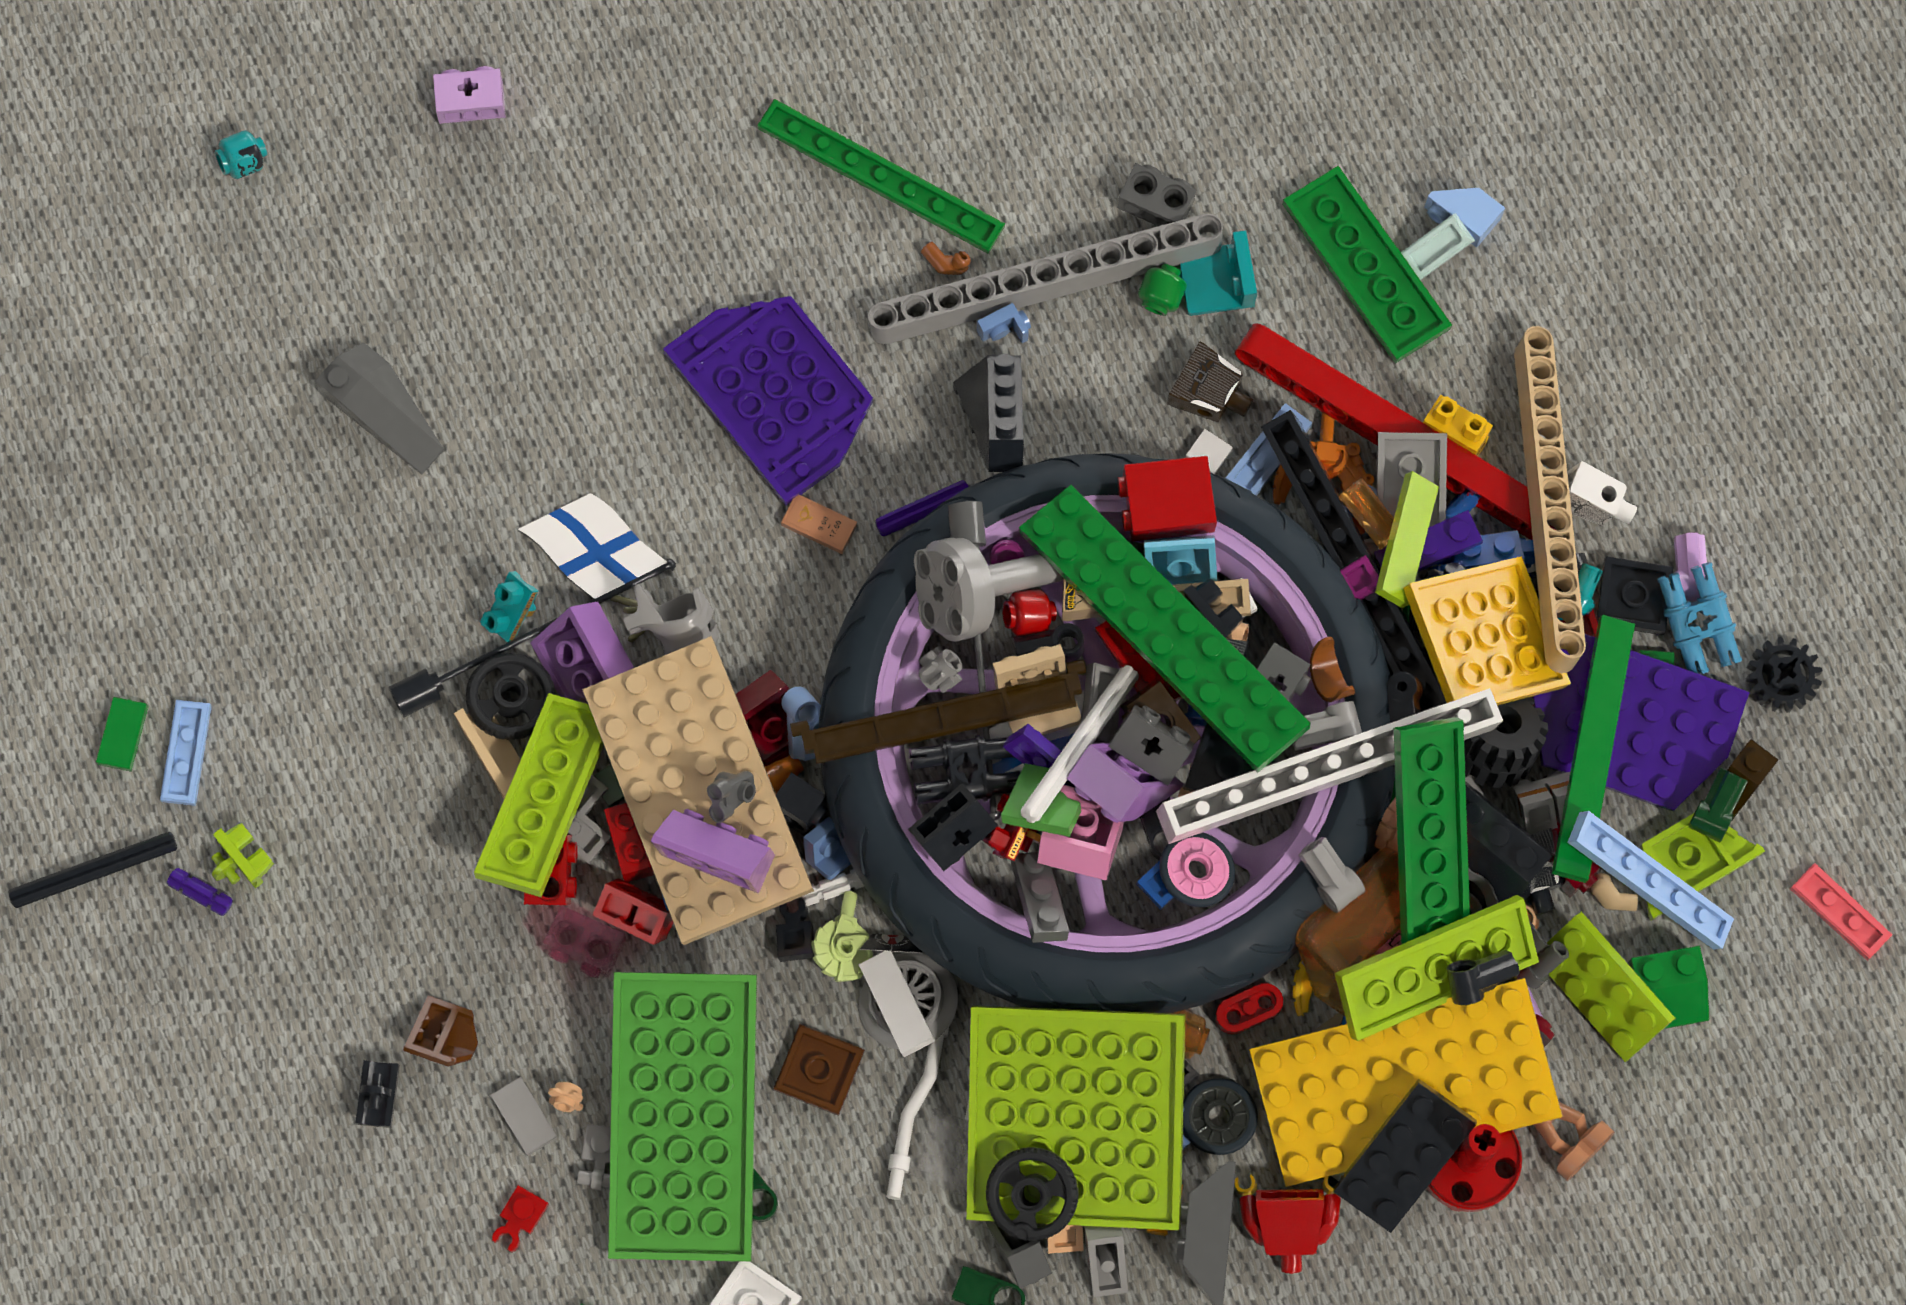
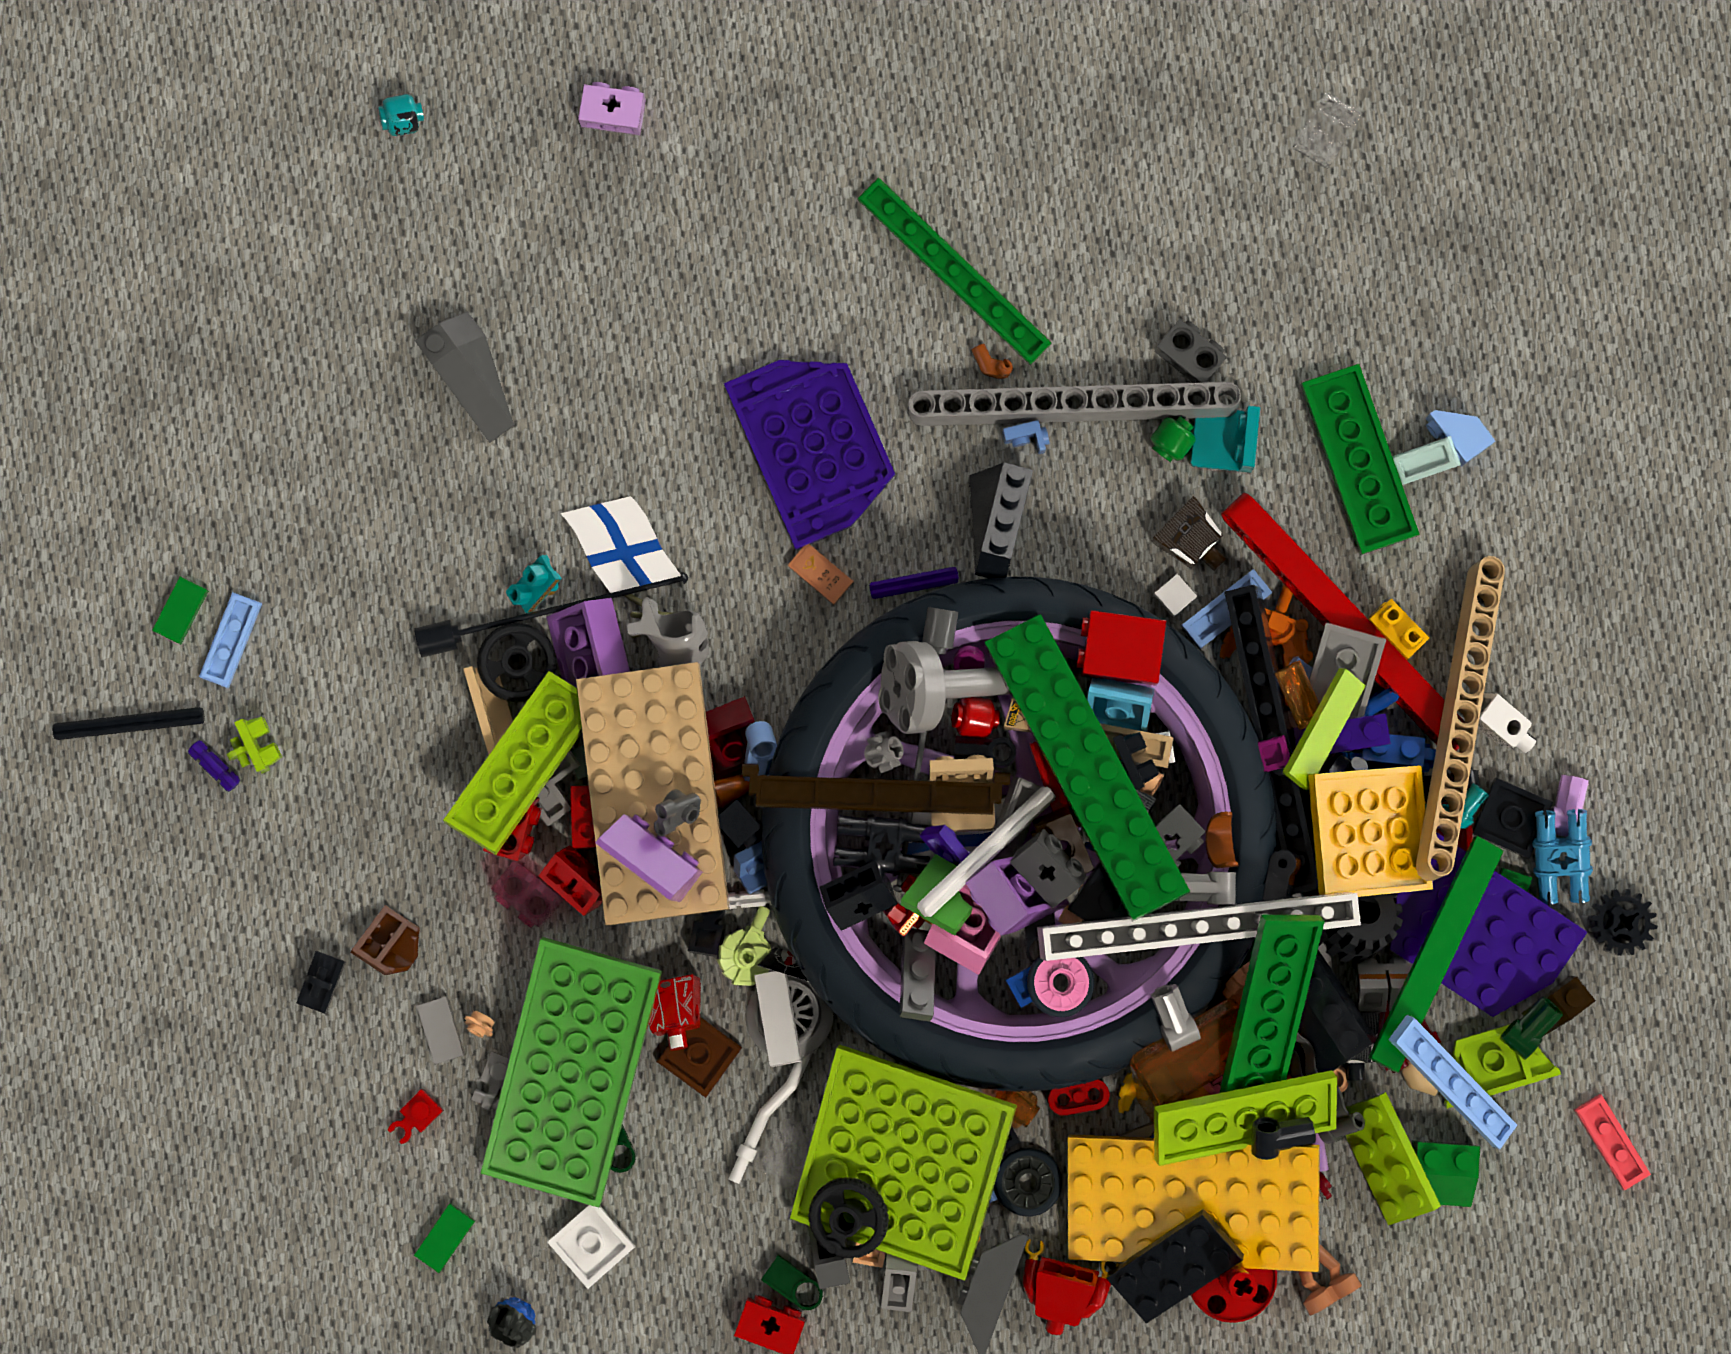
camera: 20 degrees right, 10 degrees up
(782, 1023) = (676, 1009): none -> red torso

